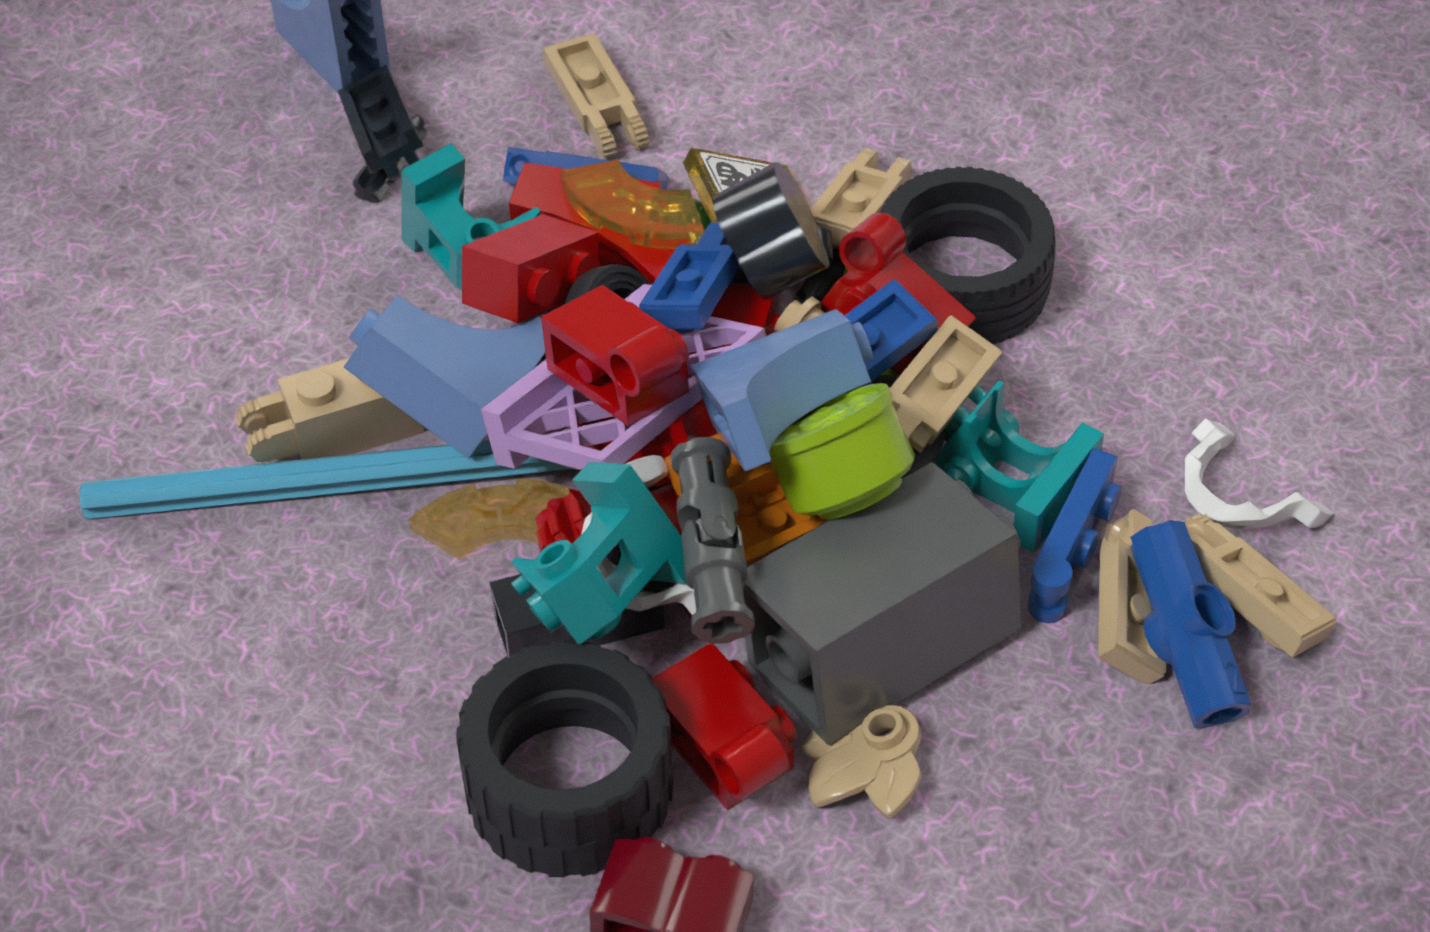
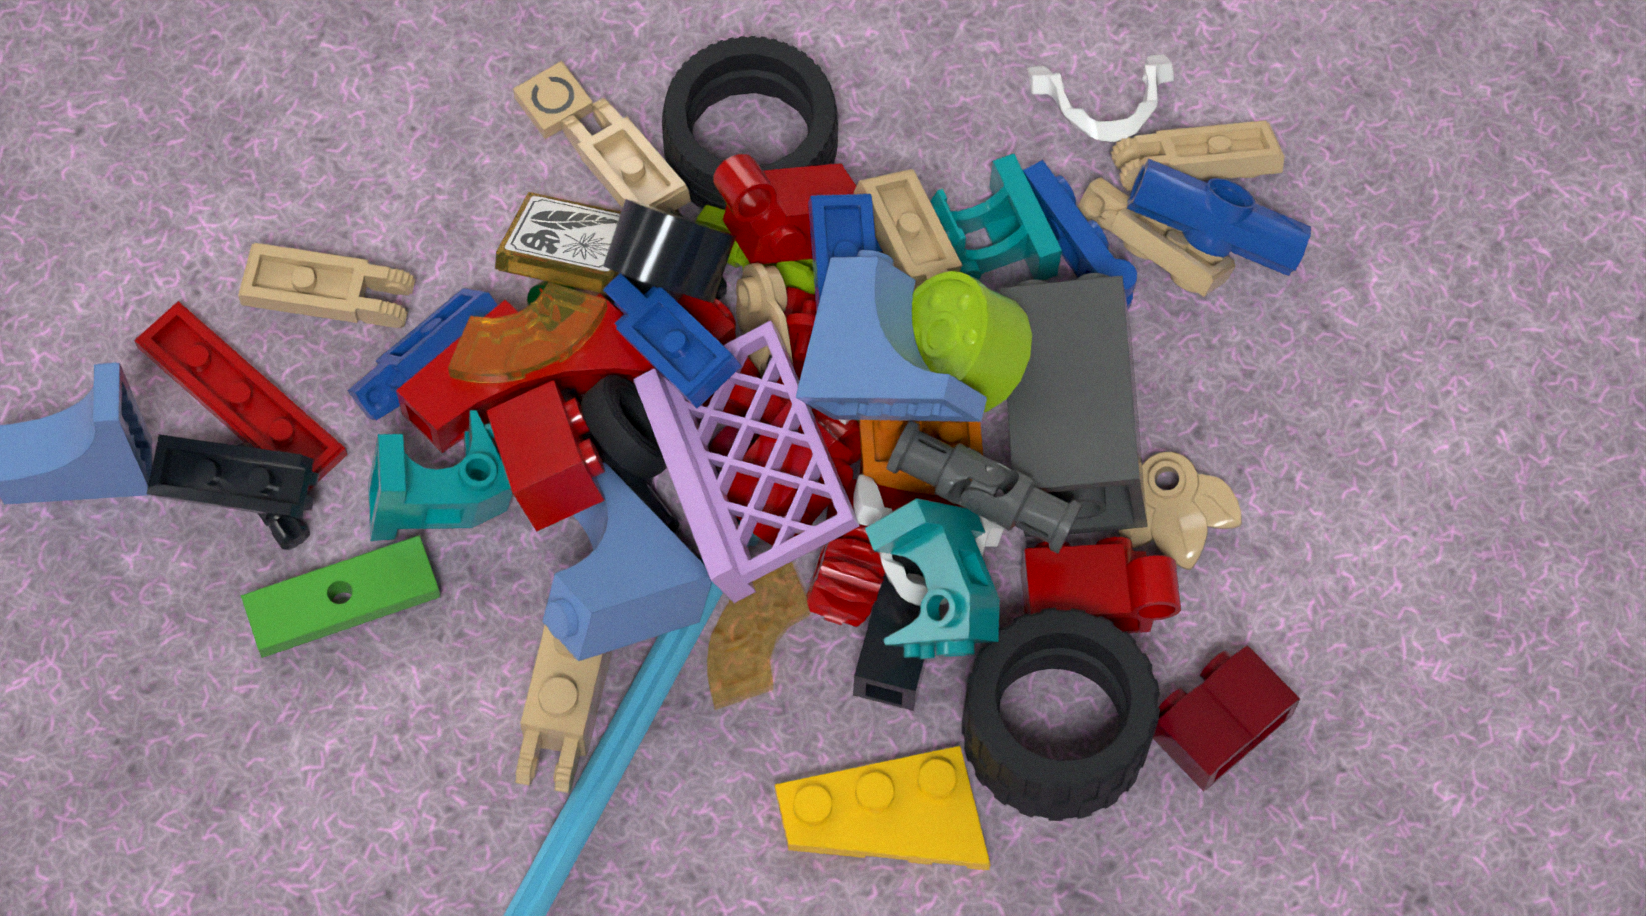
camera: 60 degrees left, 15 degrees up
(332, 238) = (303, 606): none -> bright green tile
(393, 696) = (891, 809): none -> yellow wing
(468, 90) = (235, 389): none -> red tile
(615, 354) = (755, 443): red hinge -> none
(888, 134) = (552, 98): none -> tan tile

